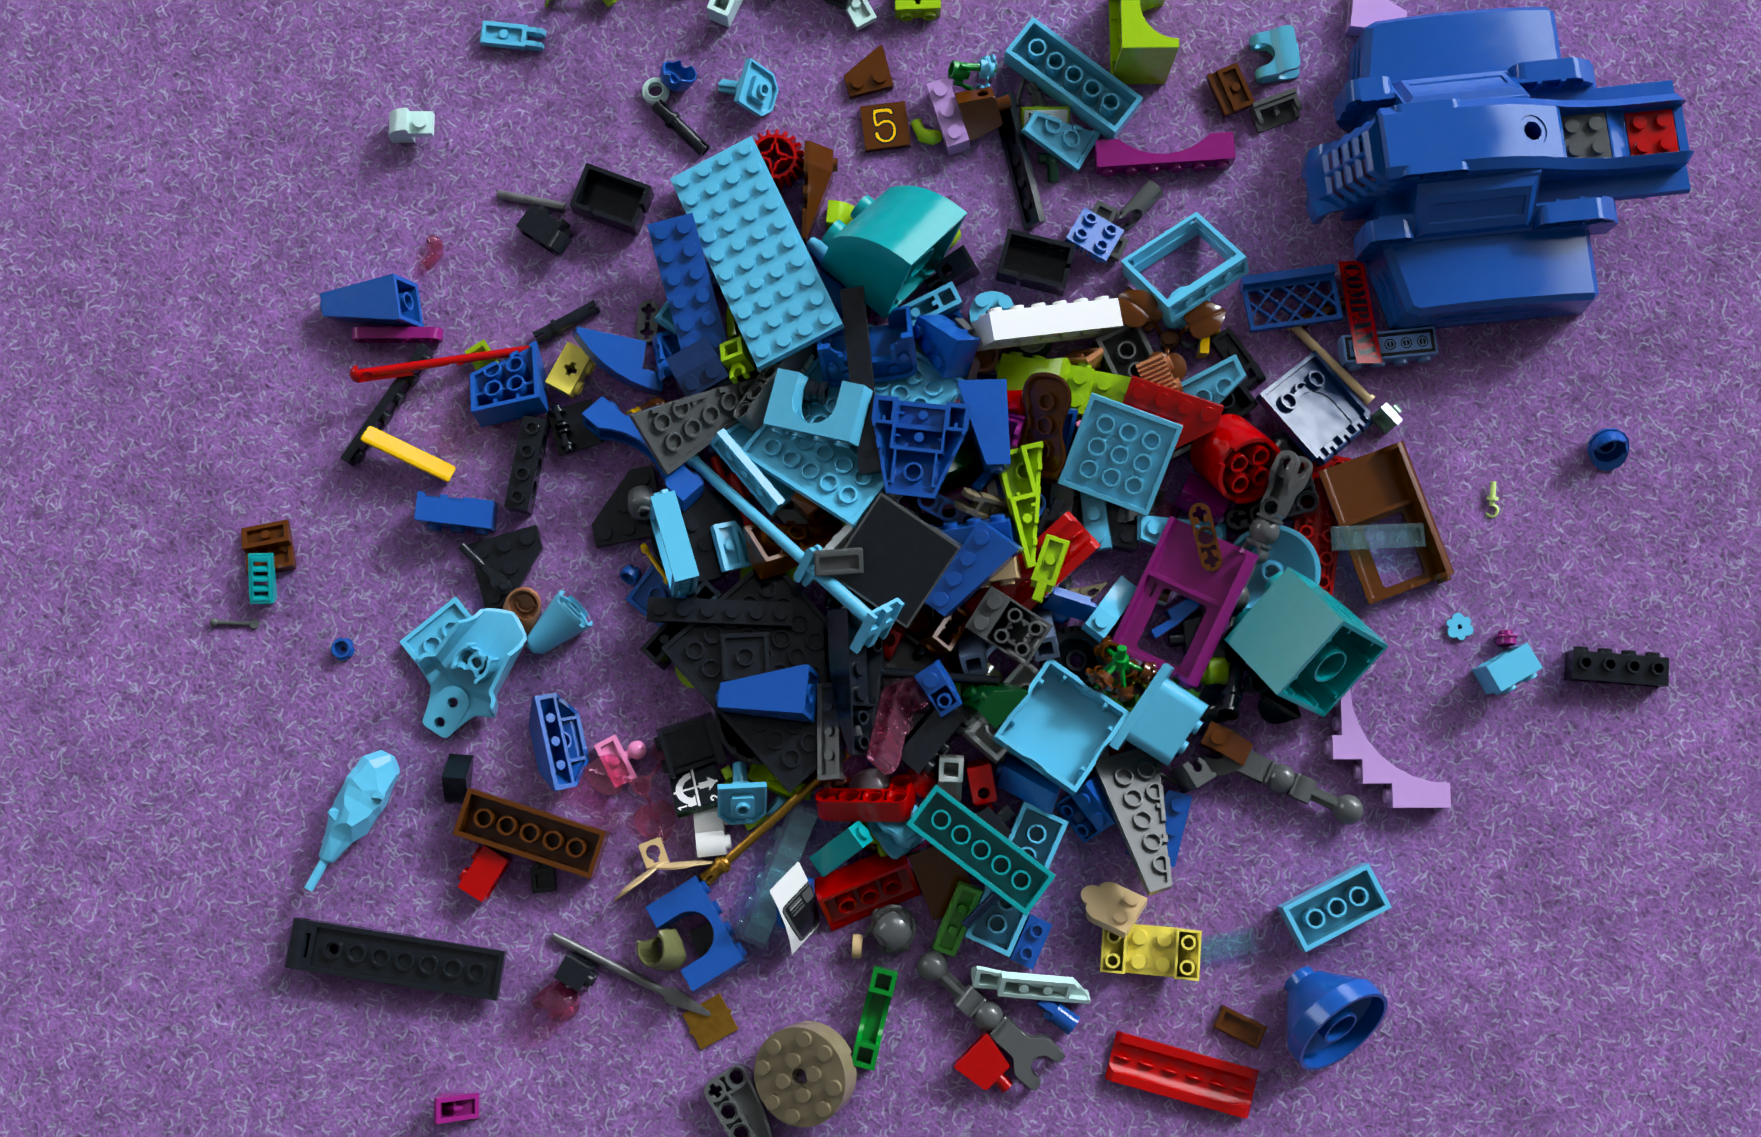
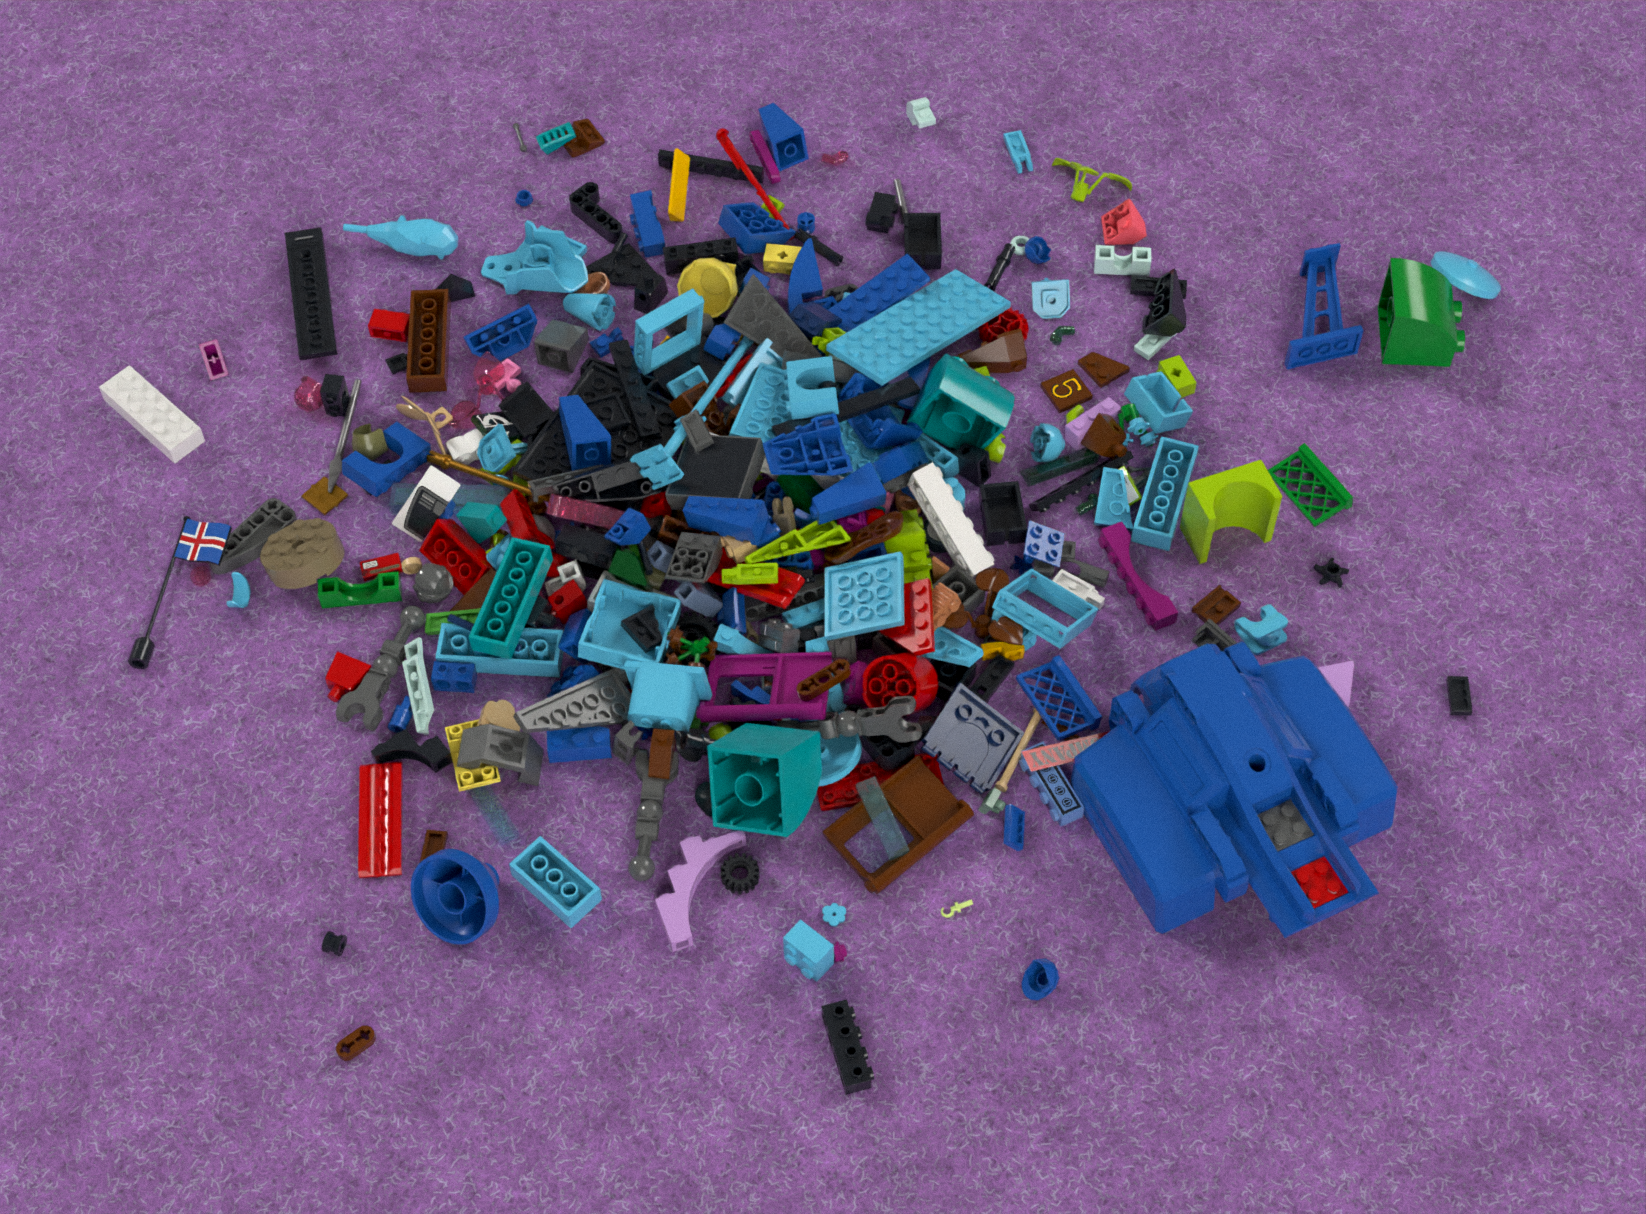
camera: 70 degrees right, 25 degrees down
(411, 565) = (584, 206): none -> black beam
(522, 319) = (807, 219): none -> blue wheel
(563, 545) = (649, 292): none -> black torso
(594, 471) = (712, 281): none -> light yellow plate
(599, 673) = (561, 345): none -> dark grey slope
(614, 622) = (601, 344): none -> blue plate
(801, 97) = (1057, 334): none -> arm
(840, 982) = (383, 564): none -> tile
(943, 40) = (1156, 401): none -> medium azure piece
(957, 177) = (1049, 440): none -> medium azure cylinder
(985, 178) = (1059, 466): none -> slope
(1066, 710) = (643, 629): none -> black wing
(1099, 1023) = (403, 746): none -> black arch
(1100, 270) = (1021, 565): none -> clear blue plant
(1116, 564) = (779, 636): none -> flat silver brick
(1155, 223) = (1080, 588): none -> white hinge
(1161, 926) = (501, 749): none -> dark grey slope
(1395, 701) = (740, 862): none -> black tyre
(1424, 405) = (1014, 827): none -> blue plate

